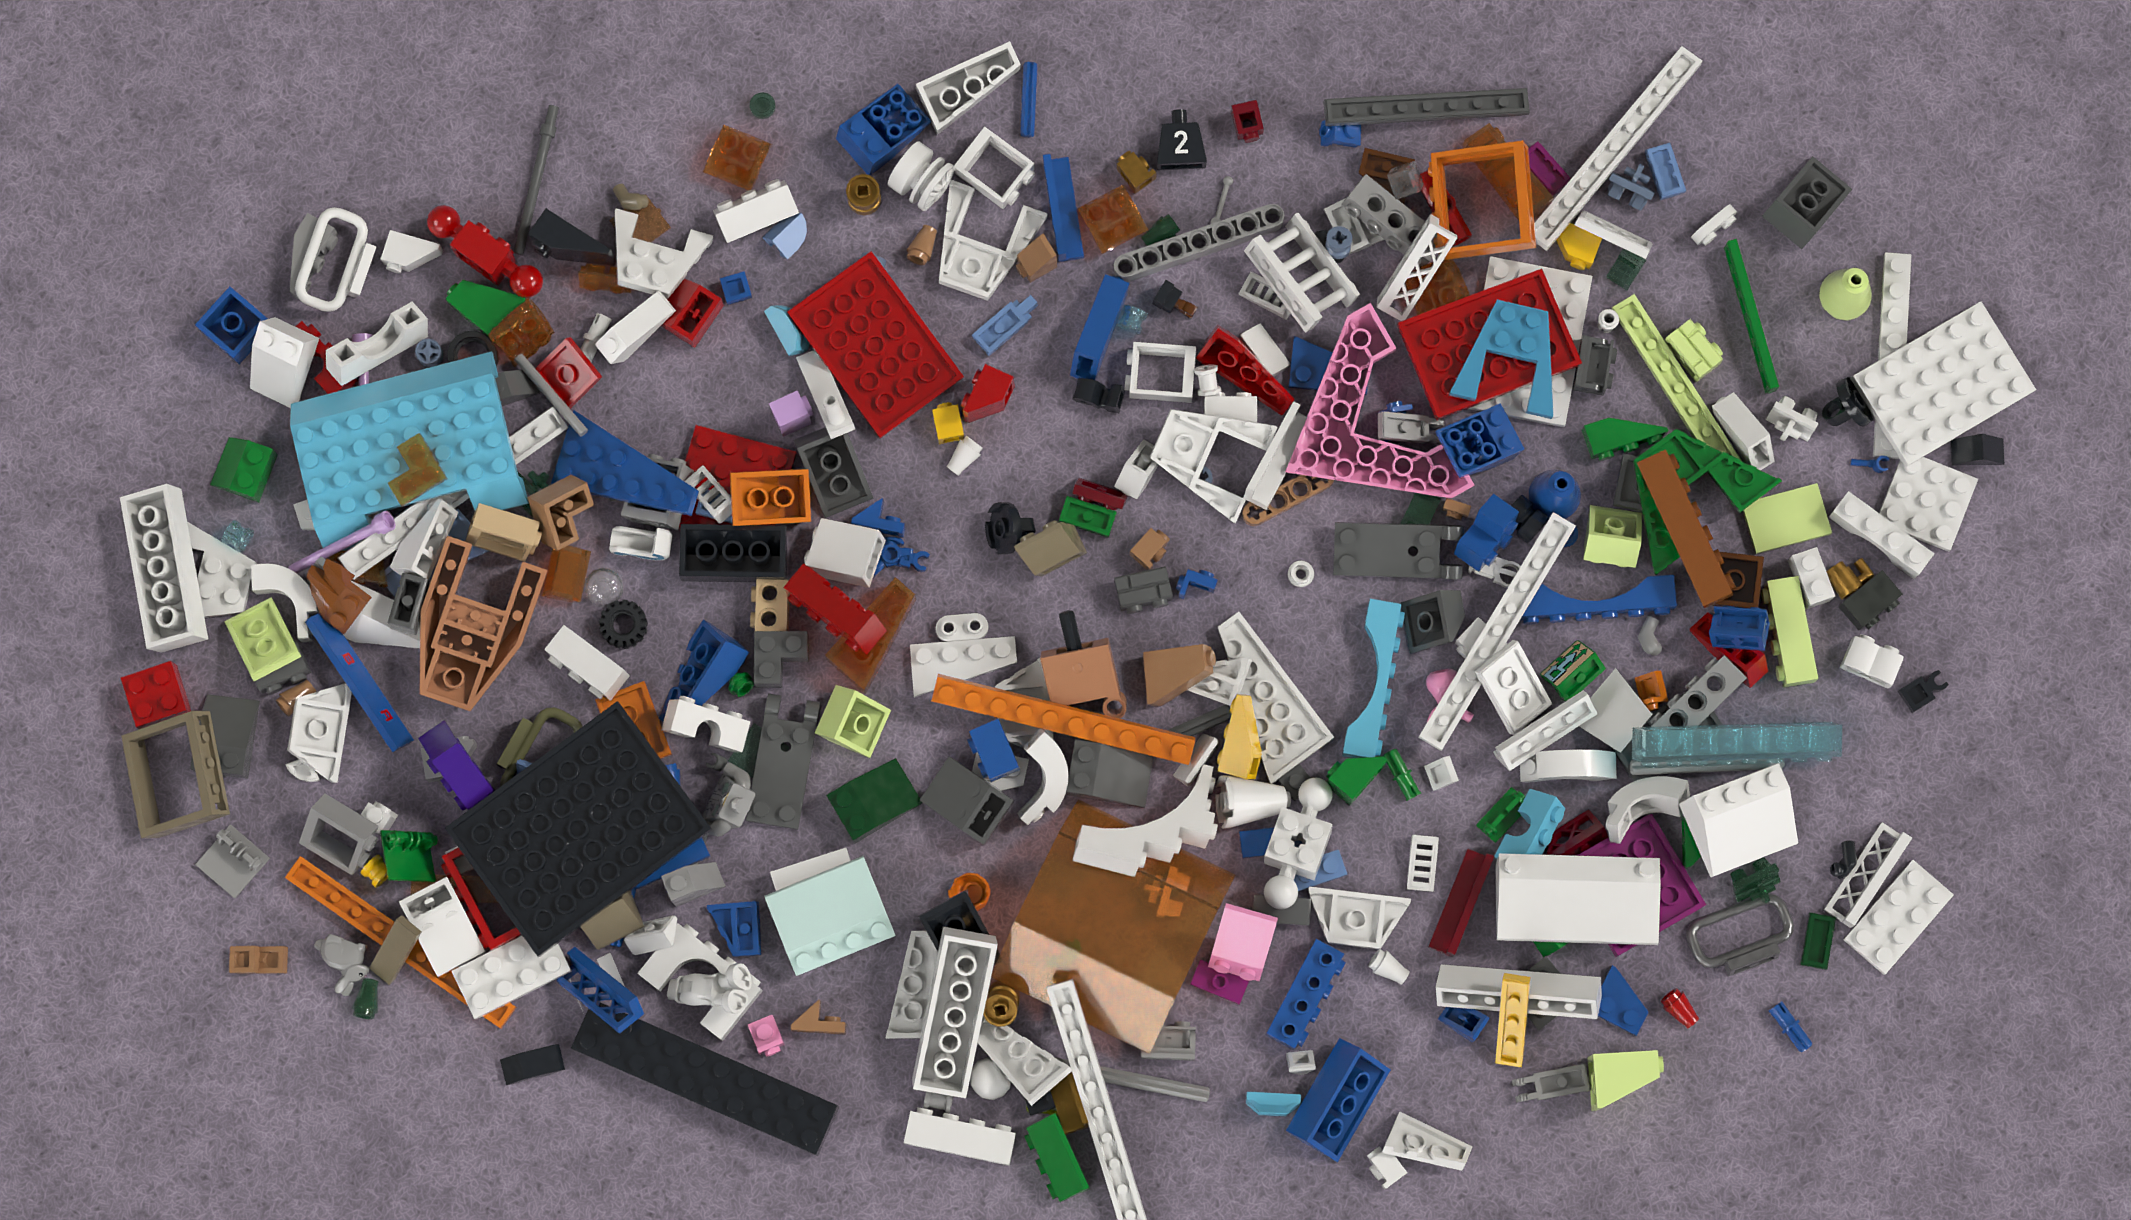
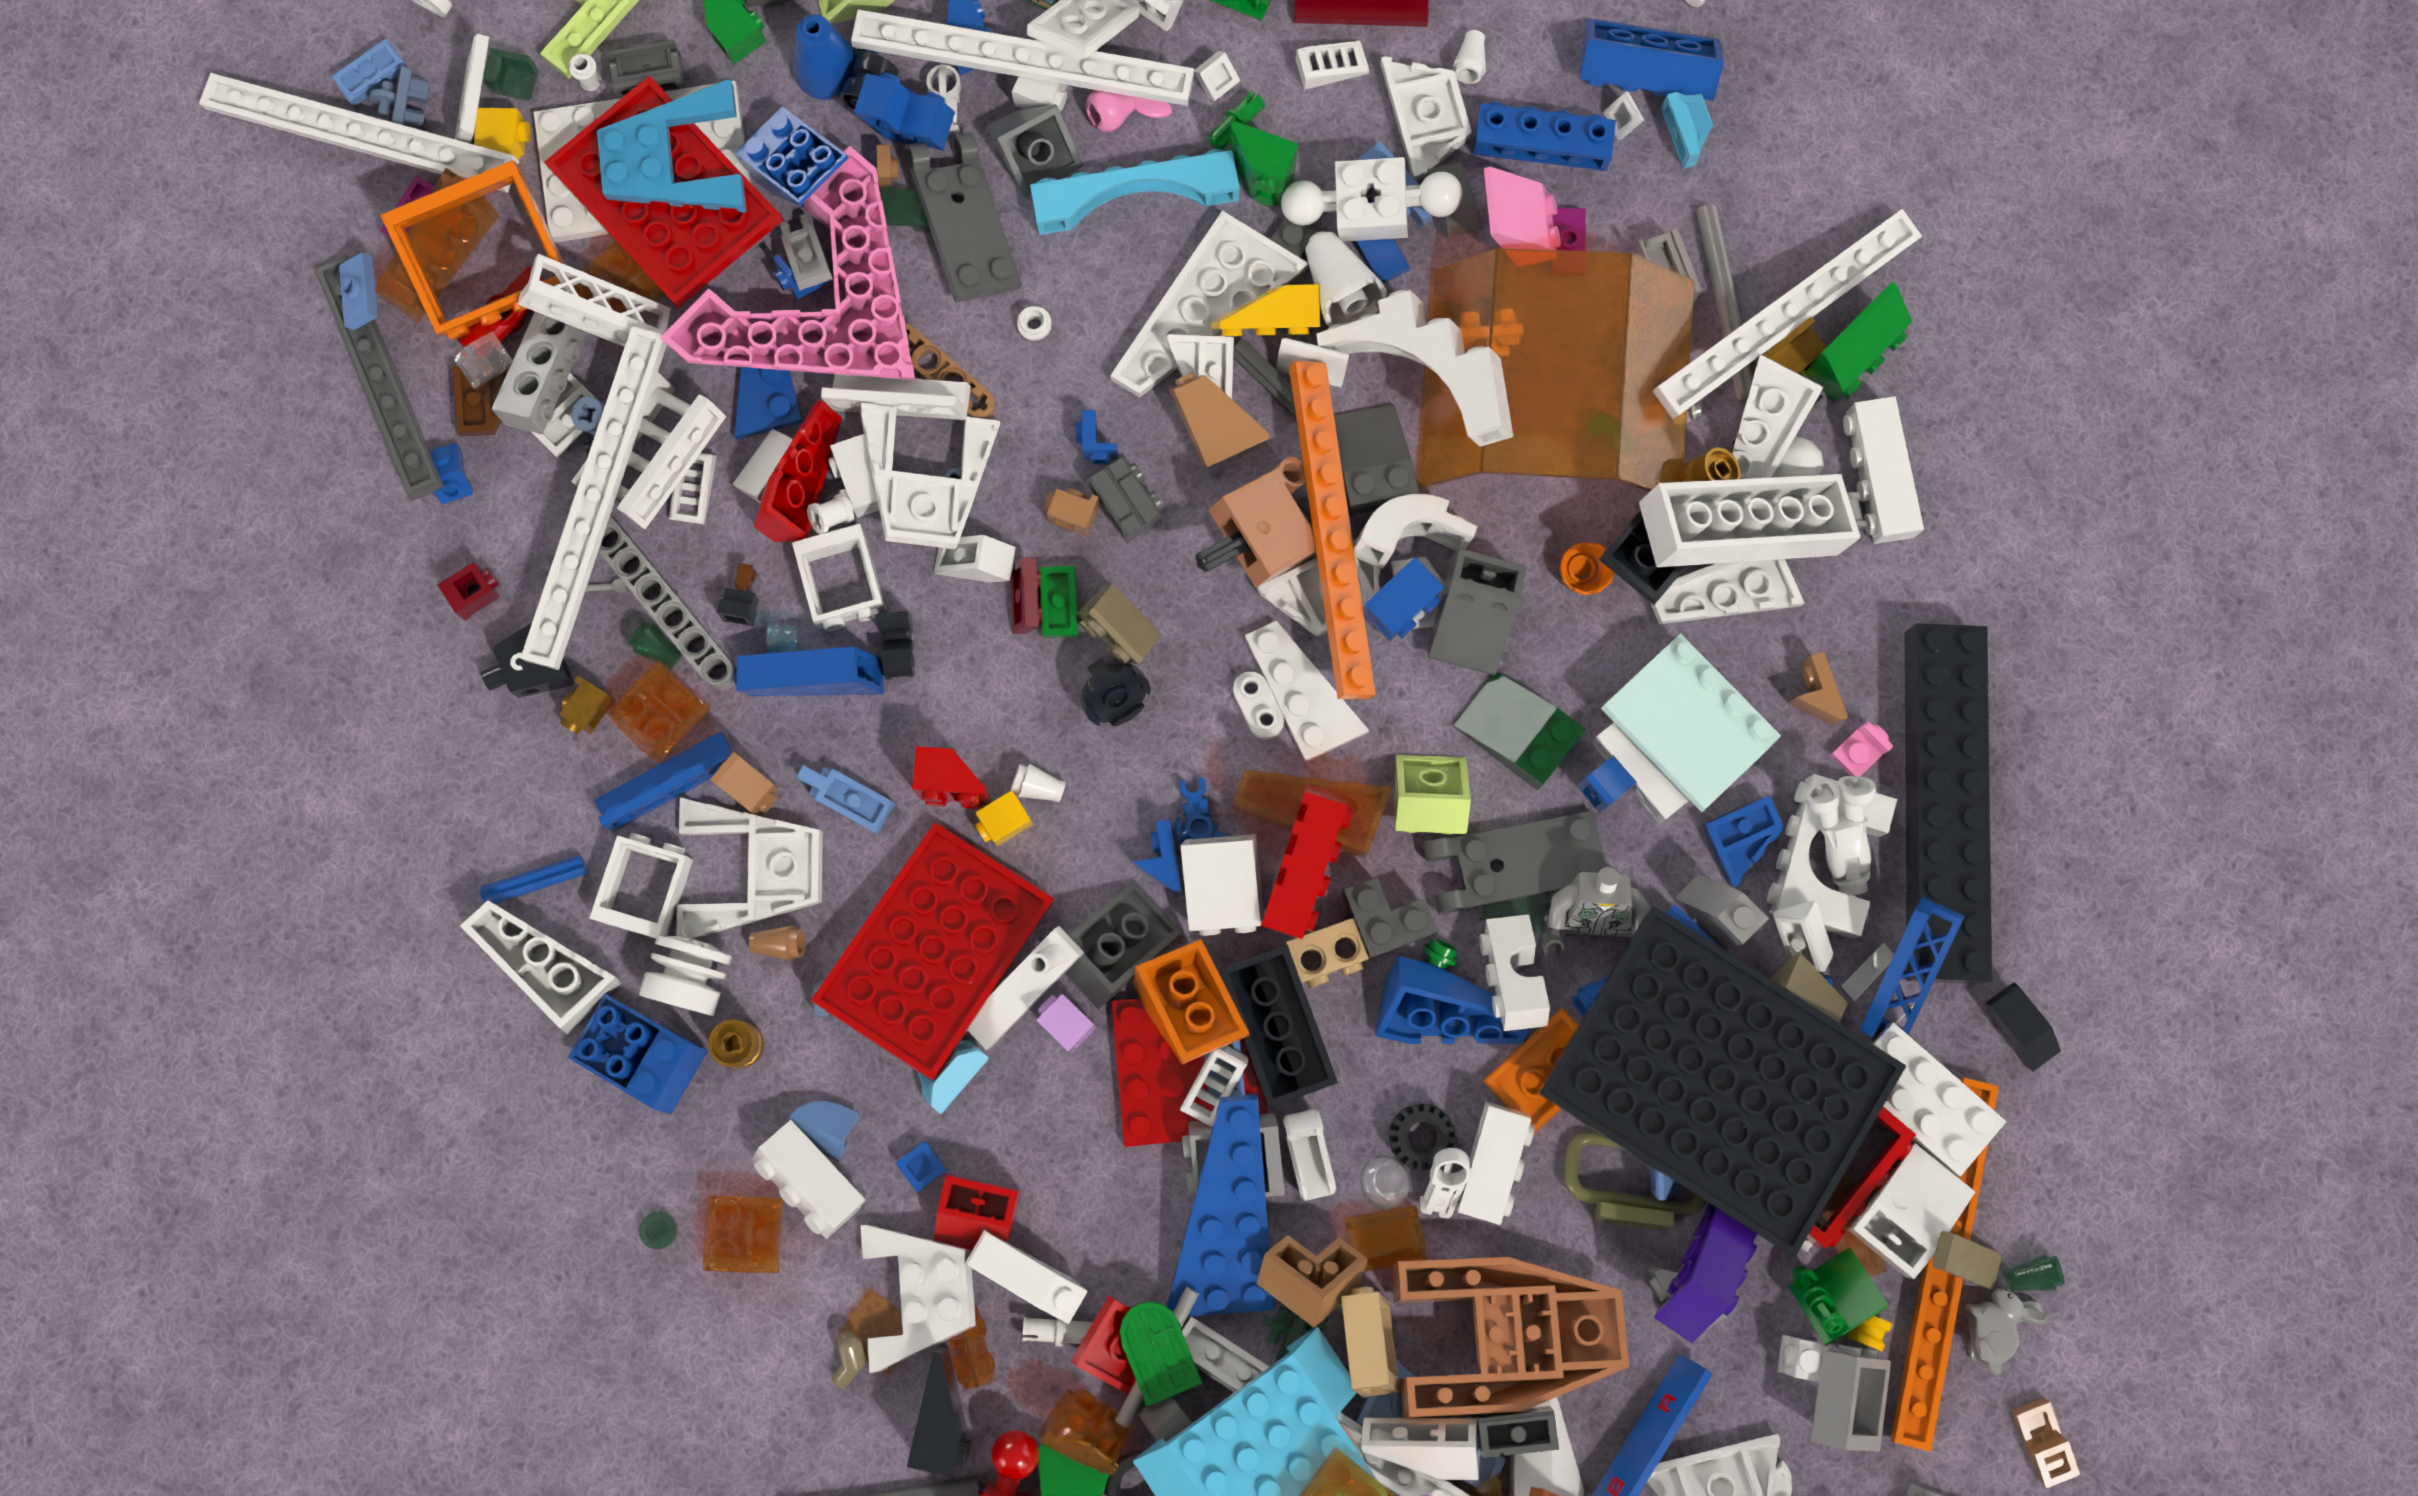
camera: 115 degrees left, 0 degrees up
(553, 395) = (1157, 1352): none -> green window
(584, 623) = (1445, 1187): none -> white piece
(810, 840) = (1606, 784): none -> blue slope
(1275, 223) = (594, 499): none -> white plate
(1492, 112) = (358, 291): none -> medium blue plate

